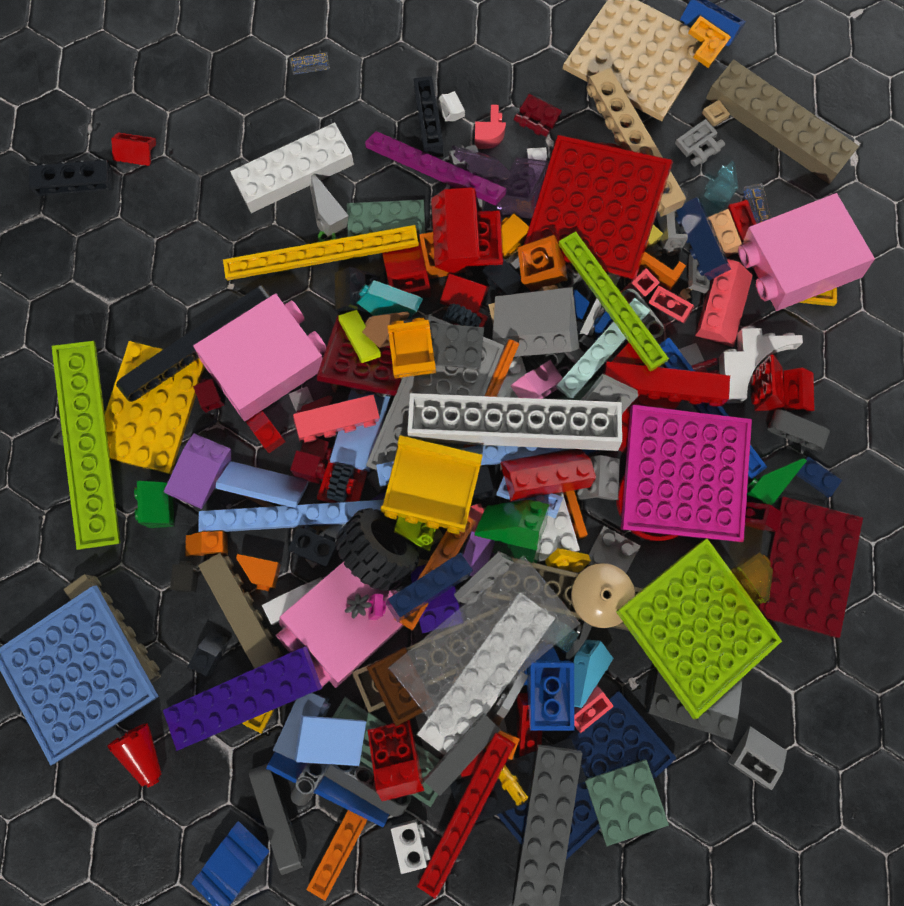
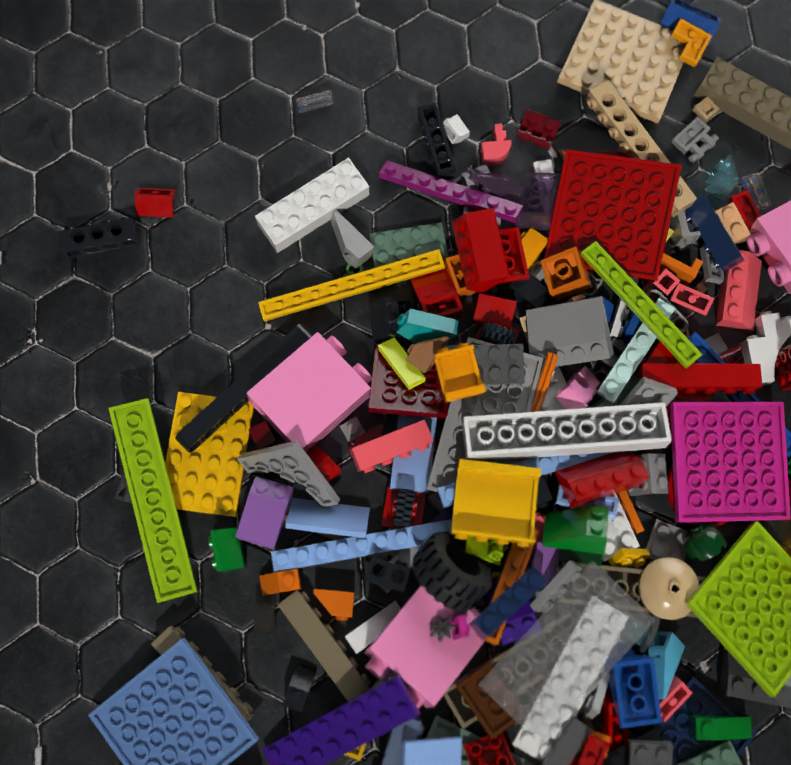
camera: 10 degrees left, 0 degrees up
(233, 426) = (293, 465): none -> light grey plate
(311, 460) = (371, 489): dark red brick -> none
(639, 745) = (719, 727): none -> green slope
(647, 553) = (703, 542): none -> dark green cylinder

